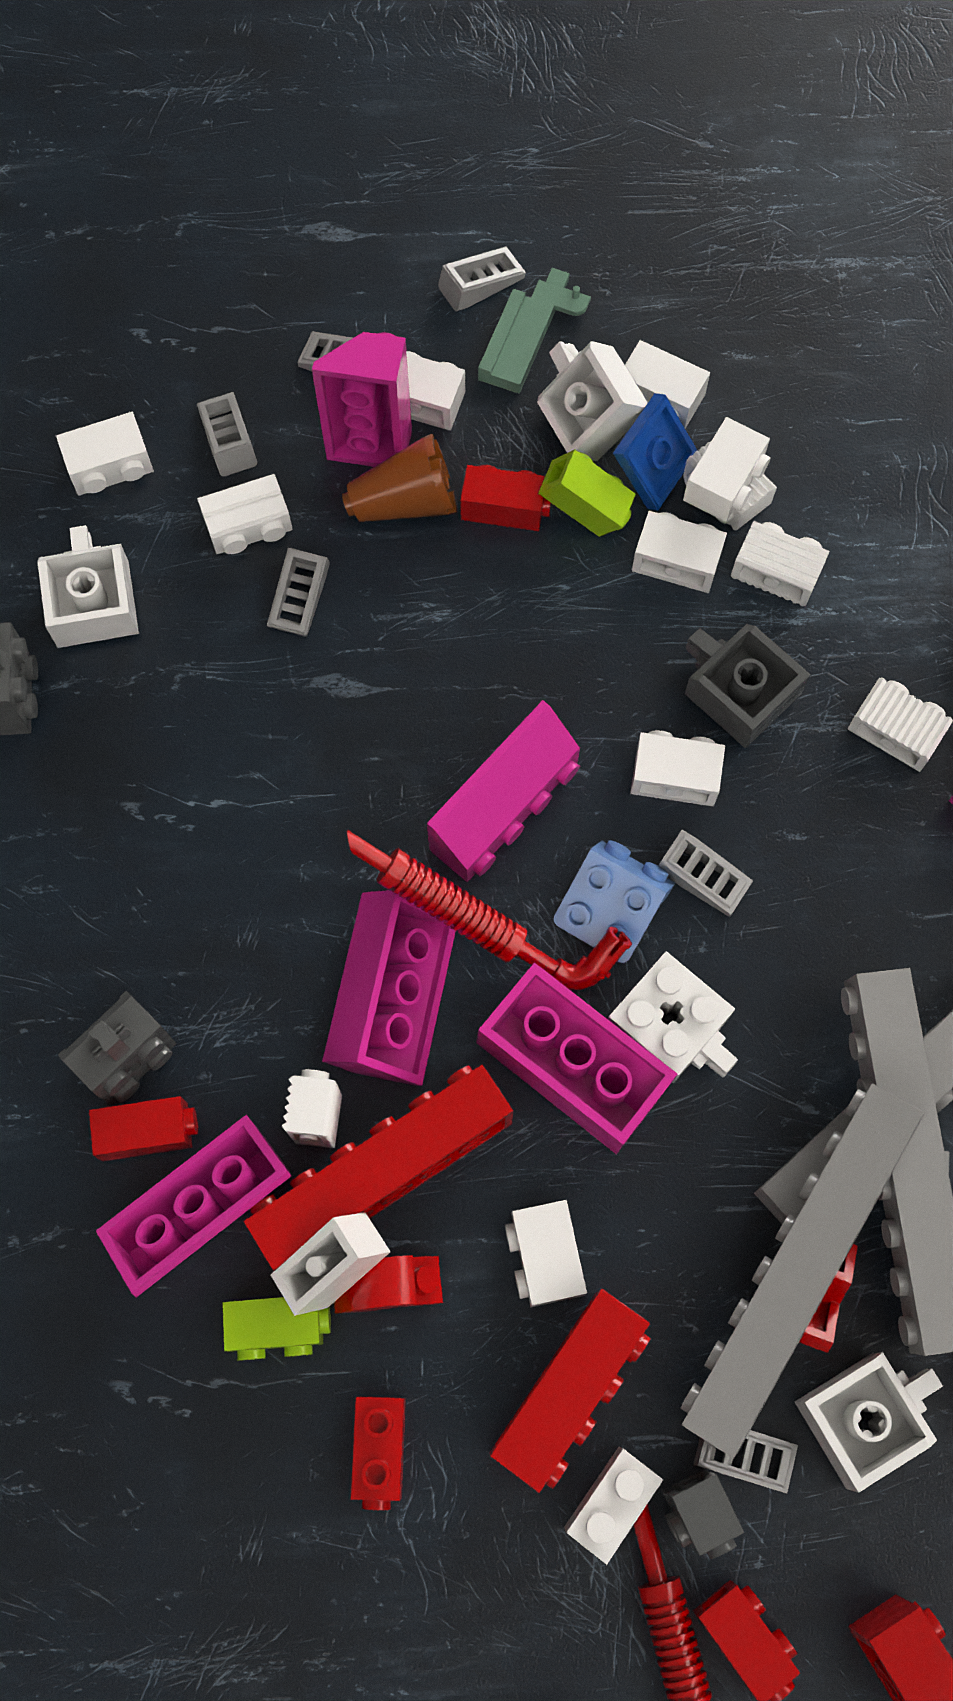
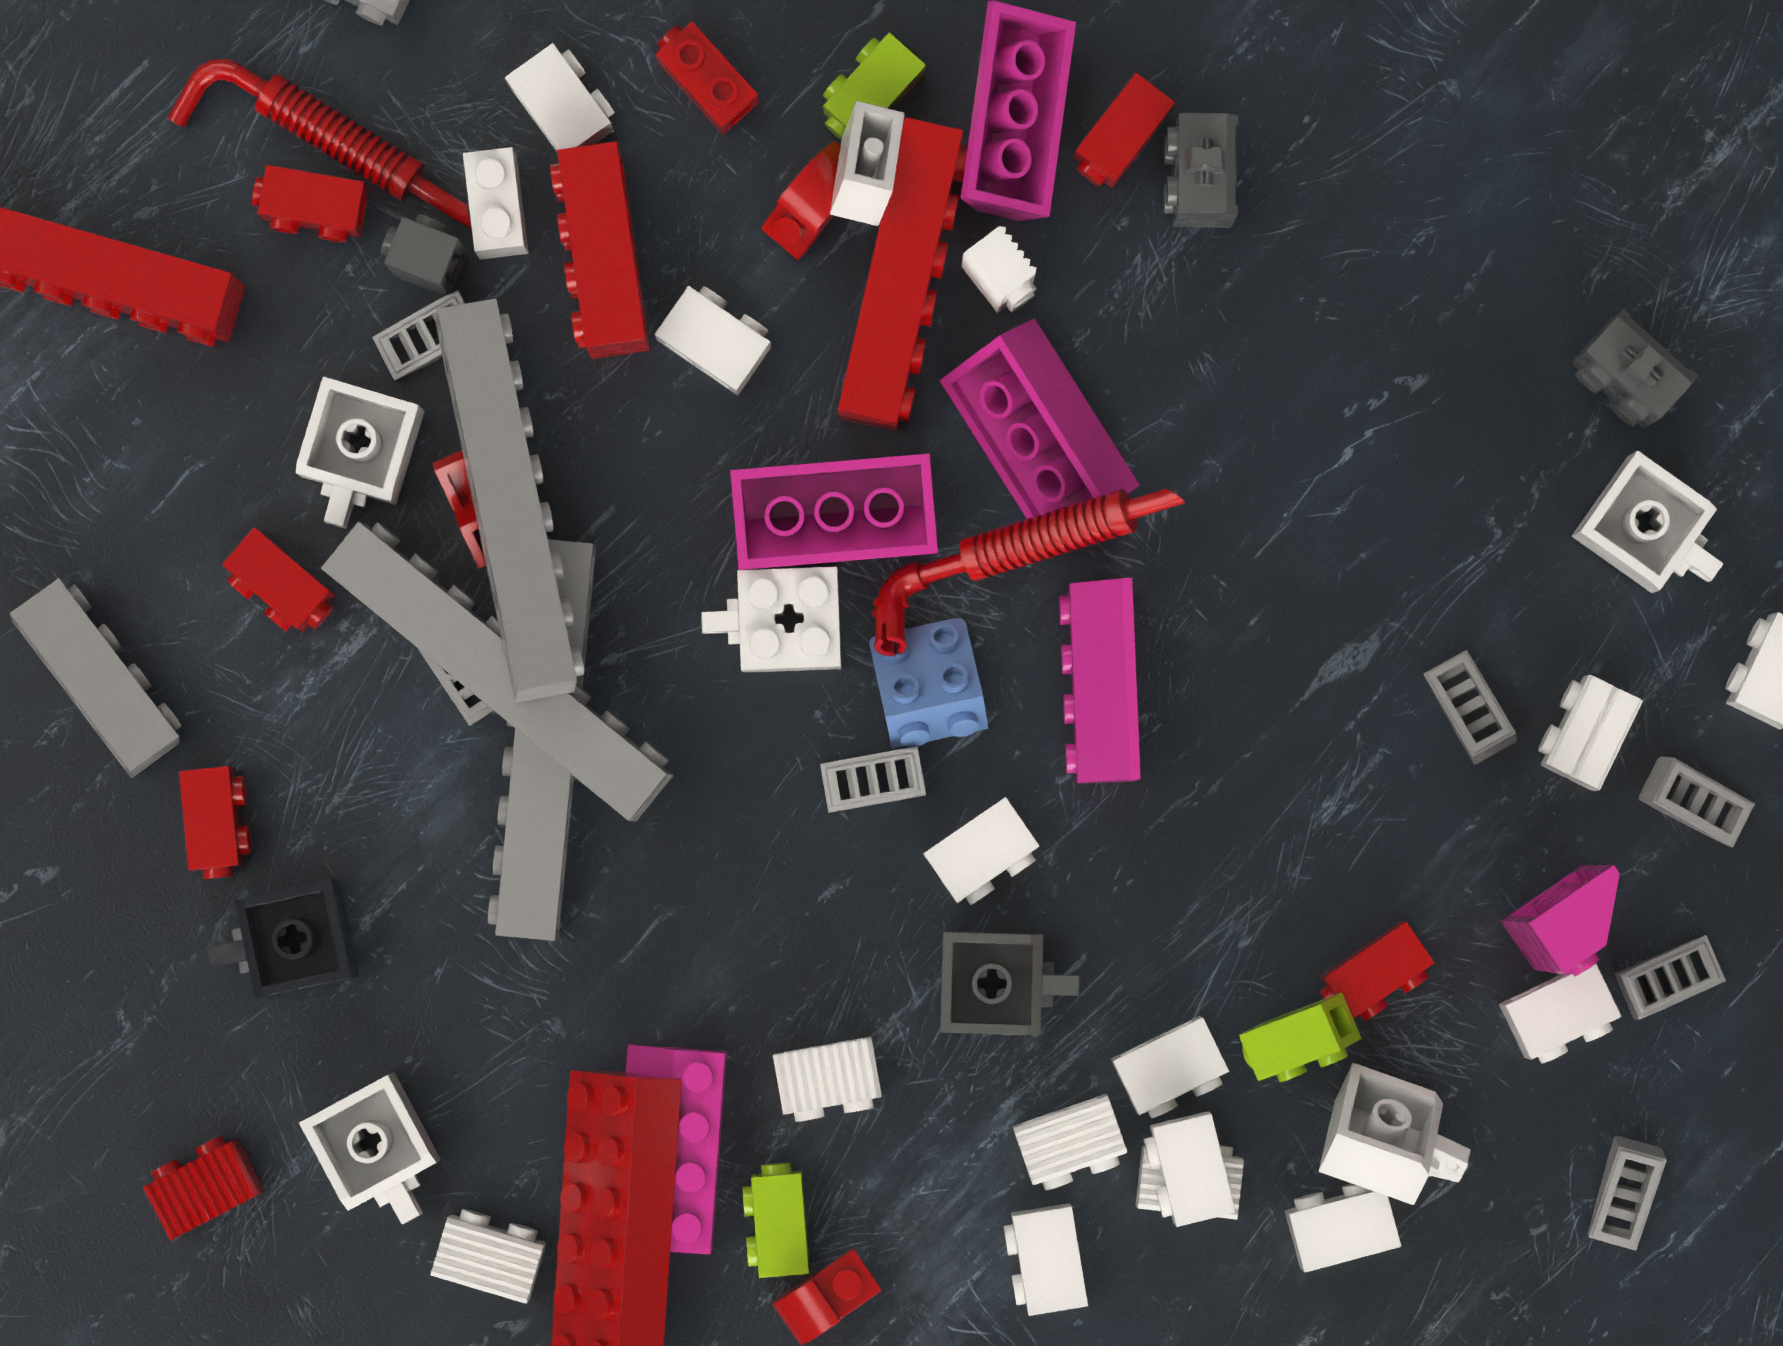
camera: 135 degrees right, 15 degrees up
(403, 486) = (1471, 893): dark orange cone -> none
(499, 1535) = (559, 101): none -> white brick
(524, 328) = (1531, 1174): sand green piece -> none
(655, 451) = (1278, 1140): blue tile -> none
(855, 511) = (1047, 1259): none -> white brick

